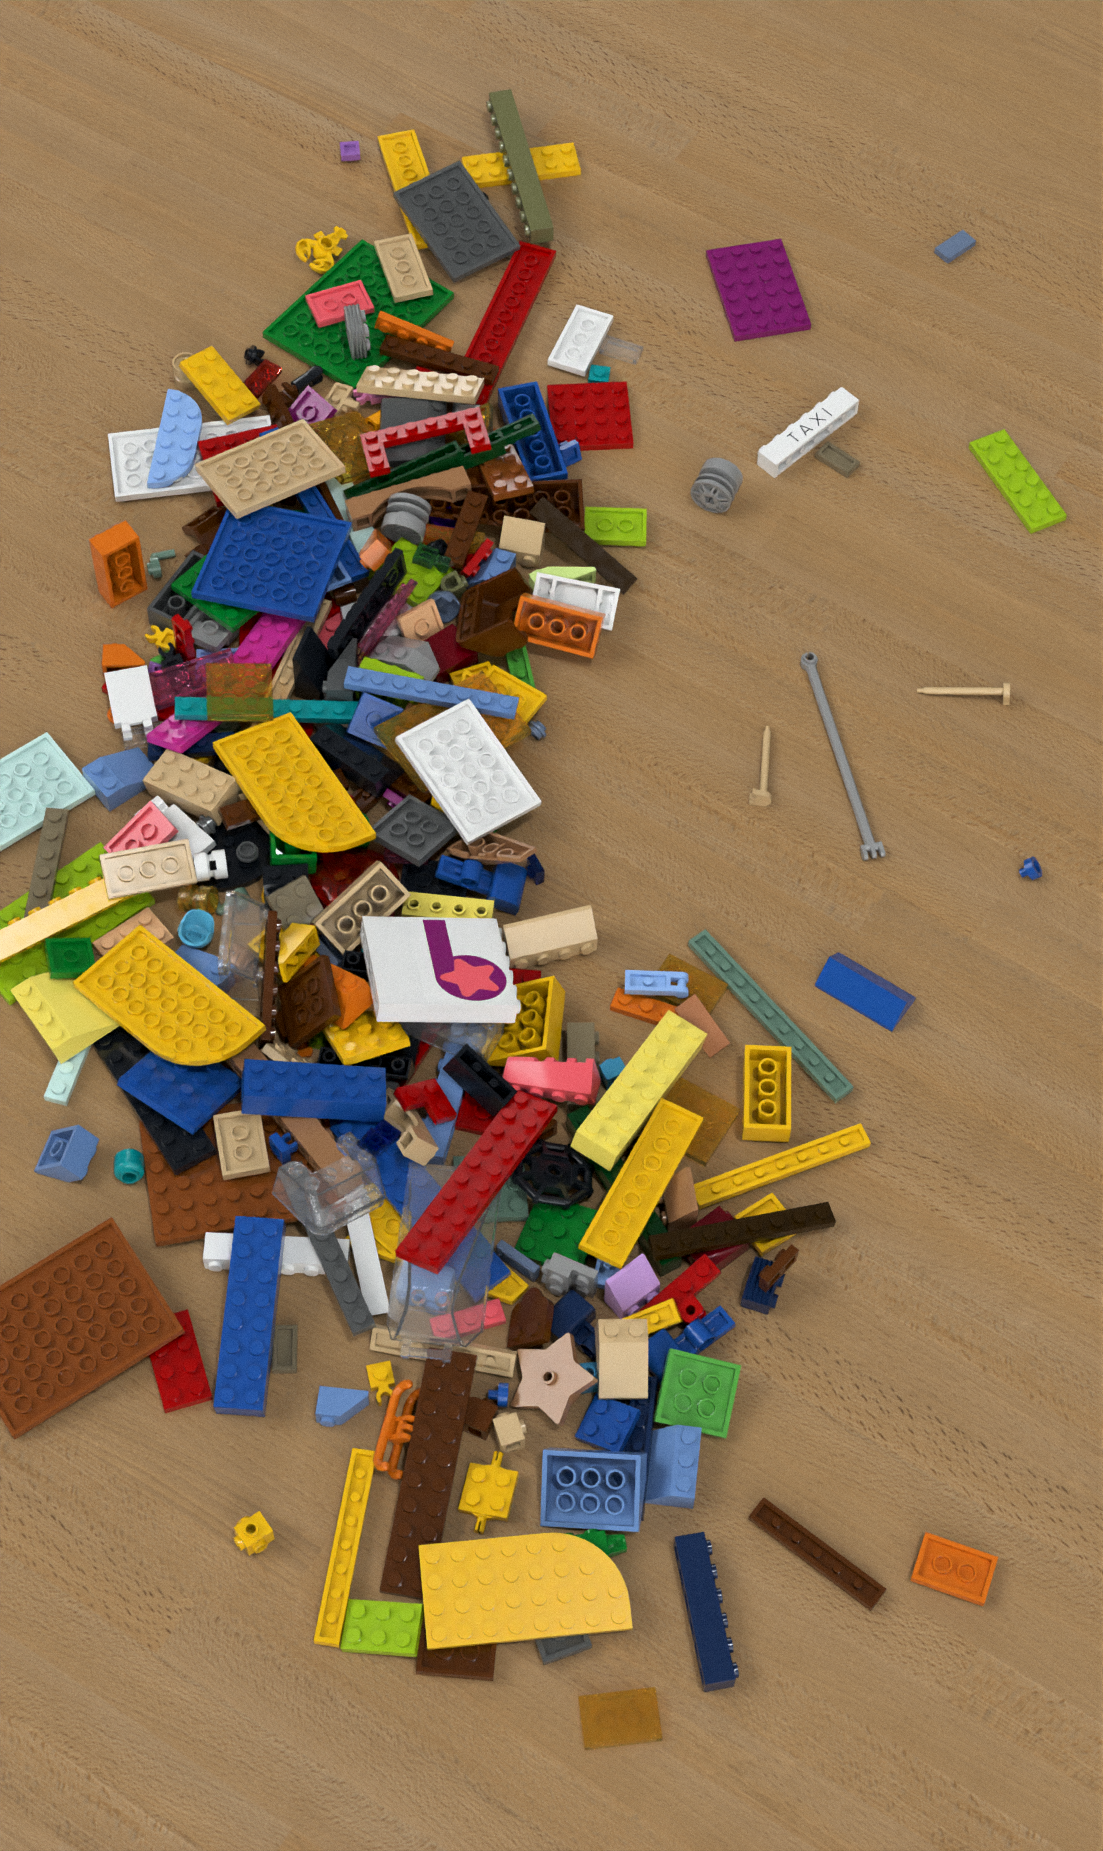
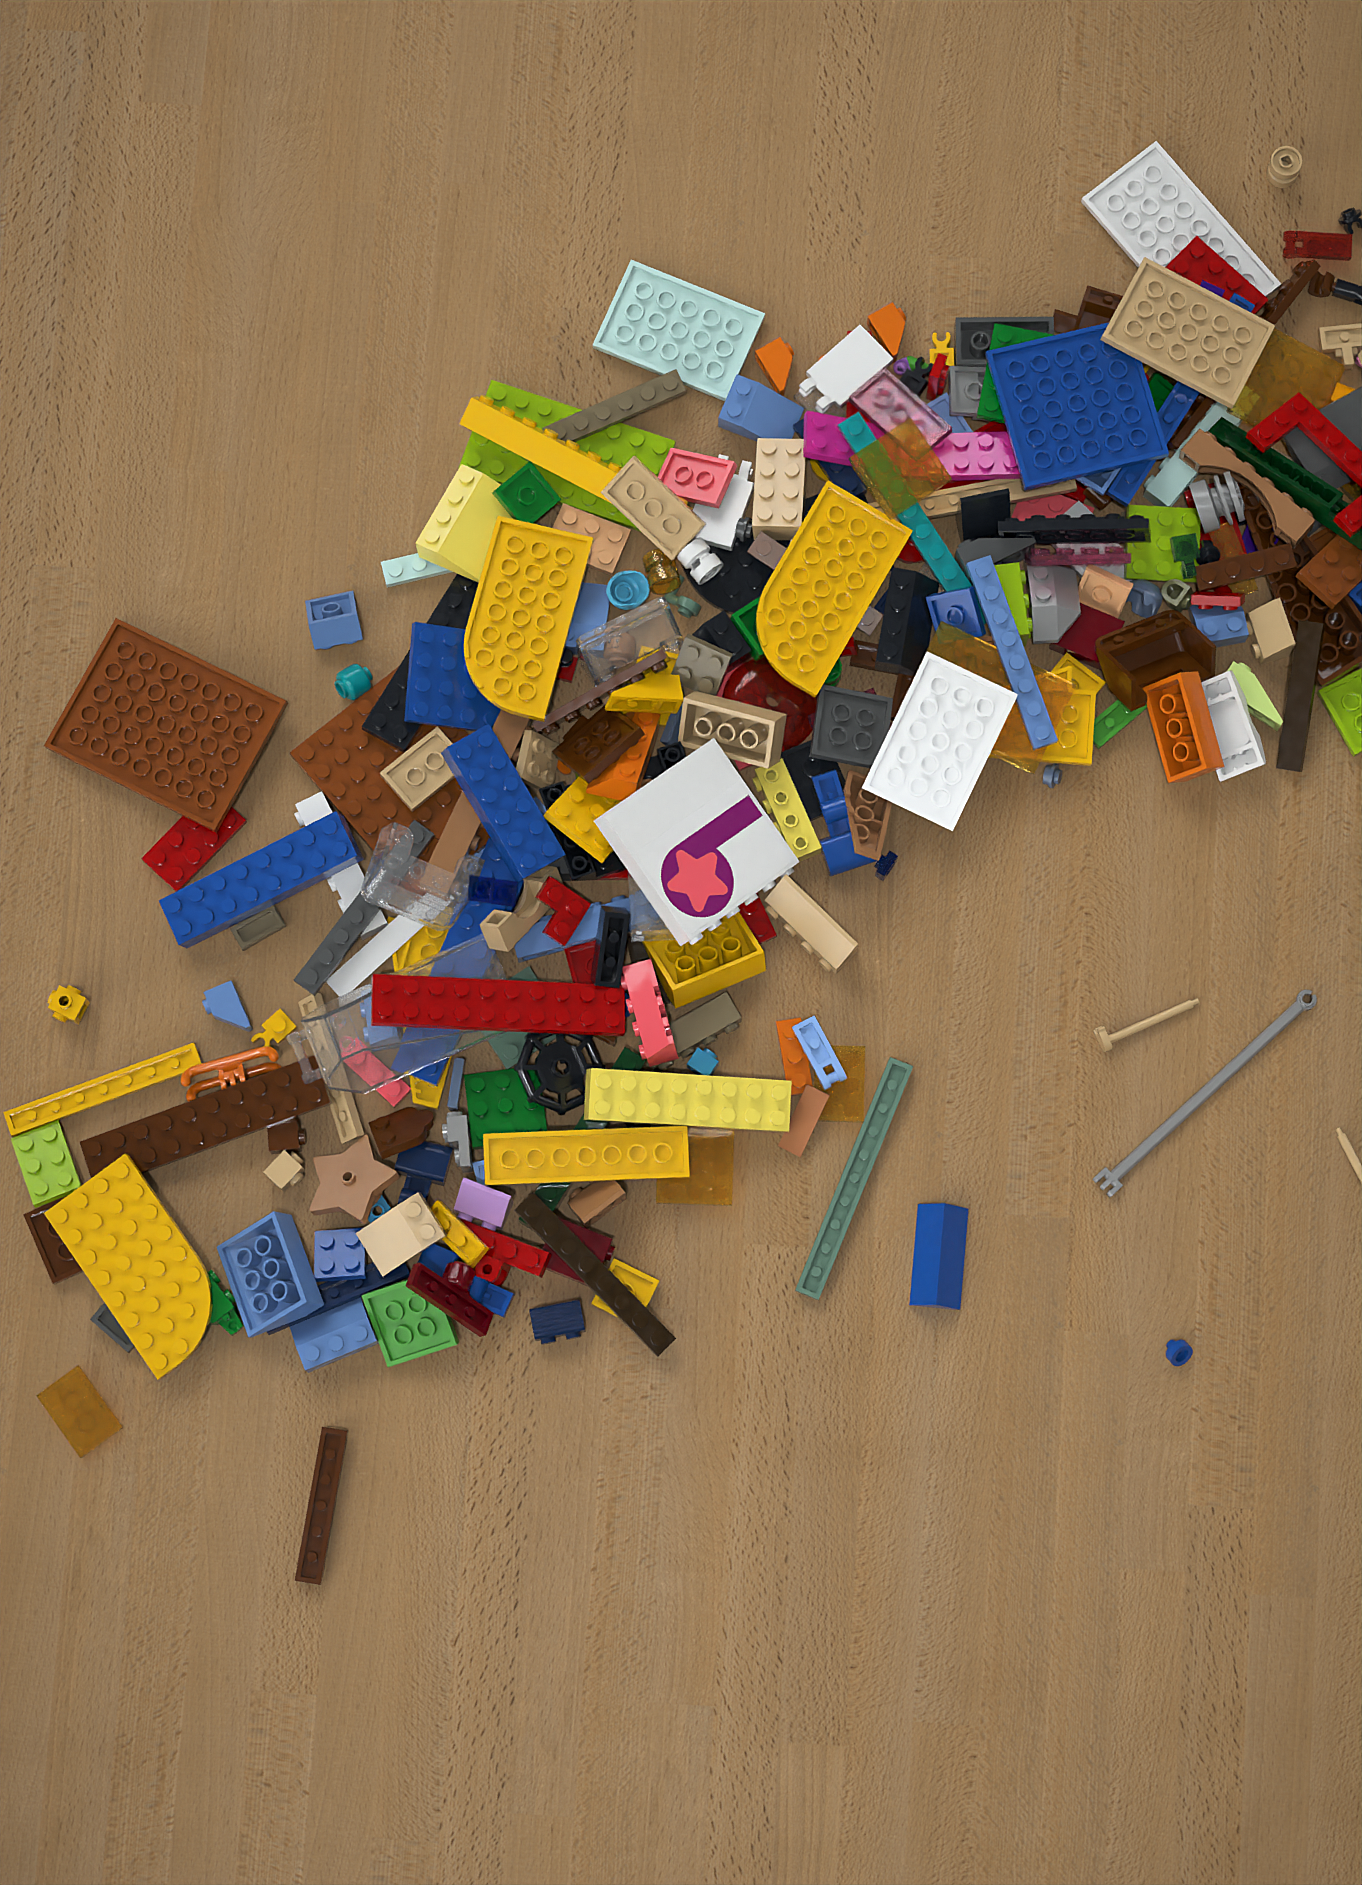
camera: 65 degrees right, 20 degrees up
(91, 744) = (776, 363): none -> orange slope
(118, 564) = (983, 258): orange brick -> none
(154, 565) = (1023, 289): sand green plate -> none
(176, 440) = (1188, 212): light blue plate -> none
(219, 385) = (1280, 212): yellow plate -> none
(247, 852) = (739, 585): dark grey plate -> none
(280, 1148) = (438, 806): blue tile -> none
(311, 407) = (1309, 321): plate -> none
(375, 550) = (1157, 496): orange slope -> none
(393, 798) = (886, 685): magenta plate -> none
(488, 1492) = (221, 1184): yellow plate -> none
(500, 1395) = (316, 1144): blue tile -> none
(695, 1343) = (451, 1294): none -> dark red plate
(704, 1612) = (212, 1433): dark blue brick -> none
(766, 1093) = (761, 1220): yellow brick -> none
(781, 1165) = (694, 1273): yellow plate -> none
(783, 1261) = (561, 1324): reddish brown plate -> none
(954, 1569) = (374, 1636): orange plate -> none

